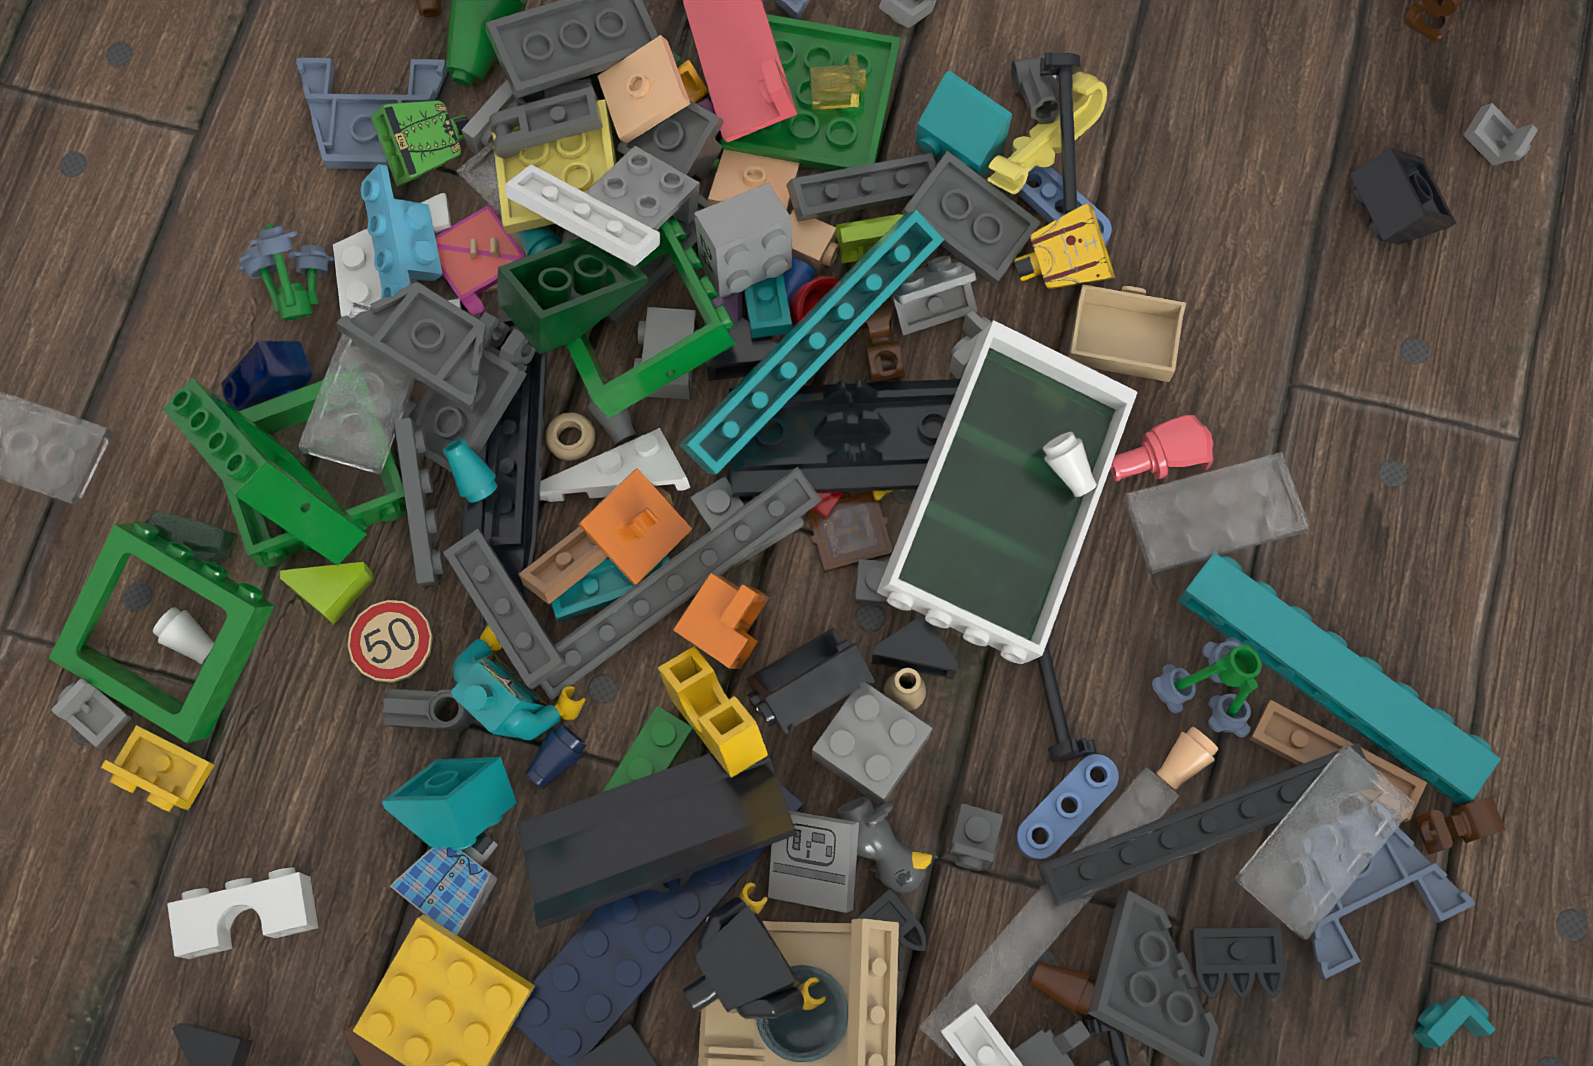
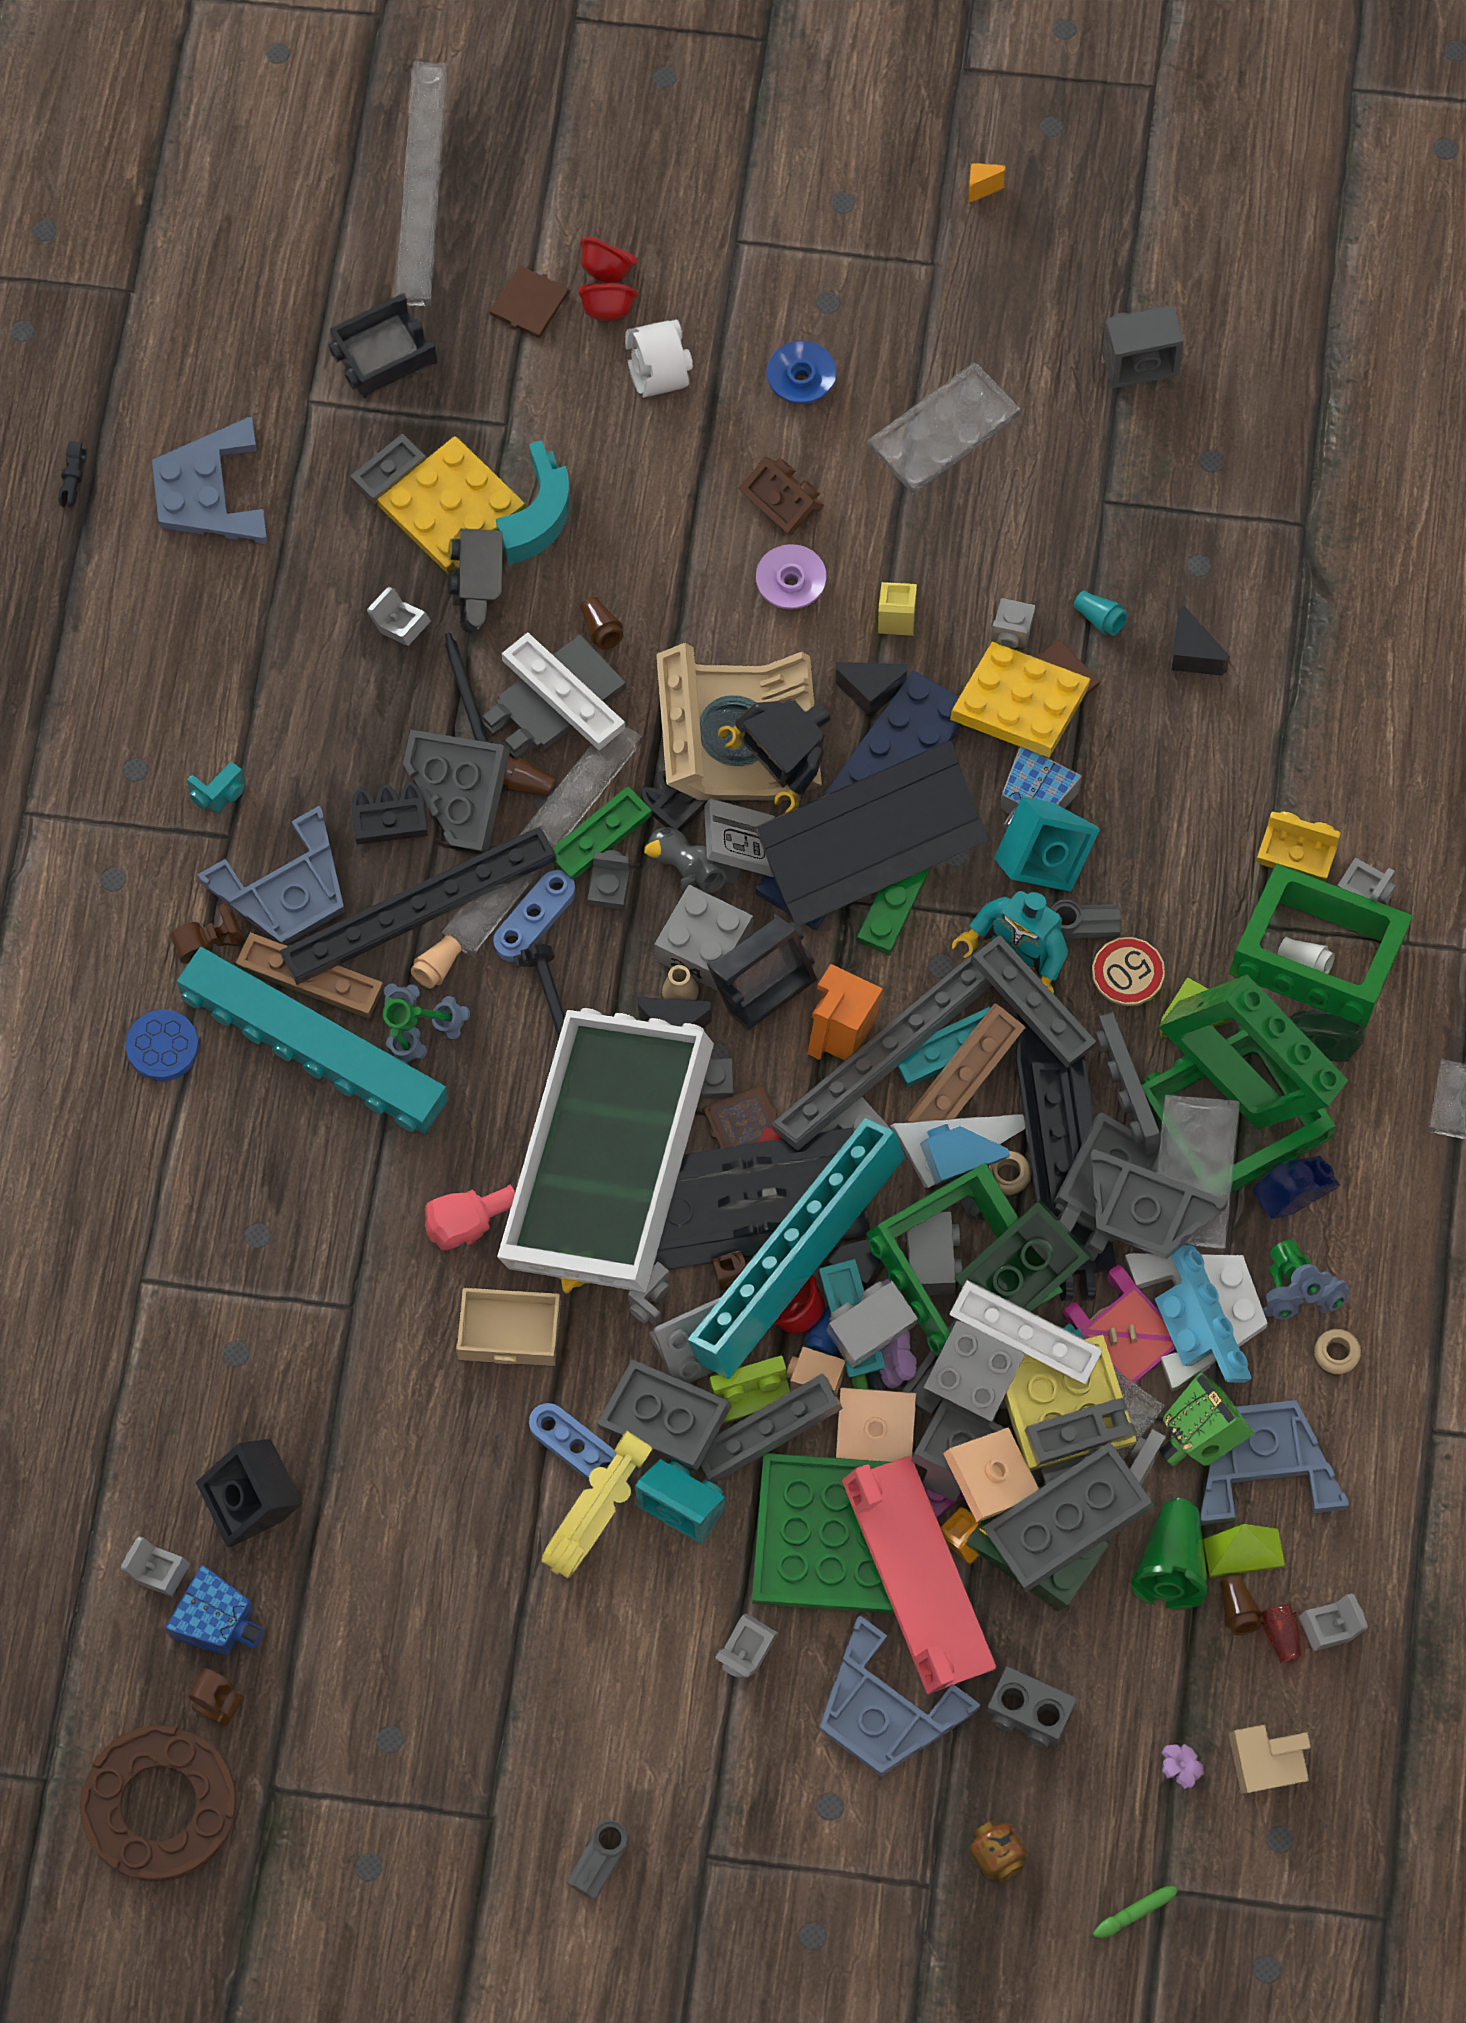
camera: 175 degrees right, 5 degrees down
(204, 919) = (1173, 763): white arch -> none
(266, 199) = (1337, 1366): none -> tan piece
(410, 40) = (1243, 1550): none -> lime slope
(469, 471) = (1084, 1107): teal cone -> none
(555, 755) = (968, 900): dark blue cone -> none
(616, 435) = (958, 1152): none -> dark azure slope
(635, 526) = (931, 1081): orange piece -> none
(718, 721) = (828, 920): yellow arch -> none
(837, 85) = (808, 1531): clear yellow bracket -> none
(981, 899) = (601, 832): none -> green plate
(1038, 91) = (612, 1569): dark grey piece -> none
(1065, 65) = (587, 1556): black piece -> none
(1068, 251) = (567, 1385): yellow torso -> none
(1069, 461) = (556, 1175): white cone -> none
(1216, 513) = (418, 1169): clear plate -> none
(1325, 842) = (323, 898): clear plate -> none
(1437, 84) = (214, 1616): none -> torso
(1507, 700) = (162, 1045): none -> blue tile

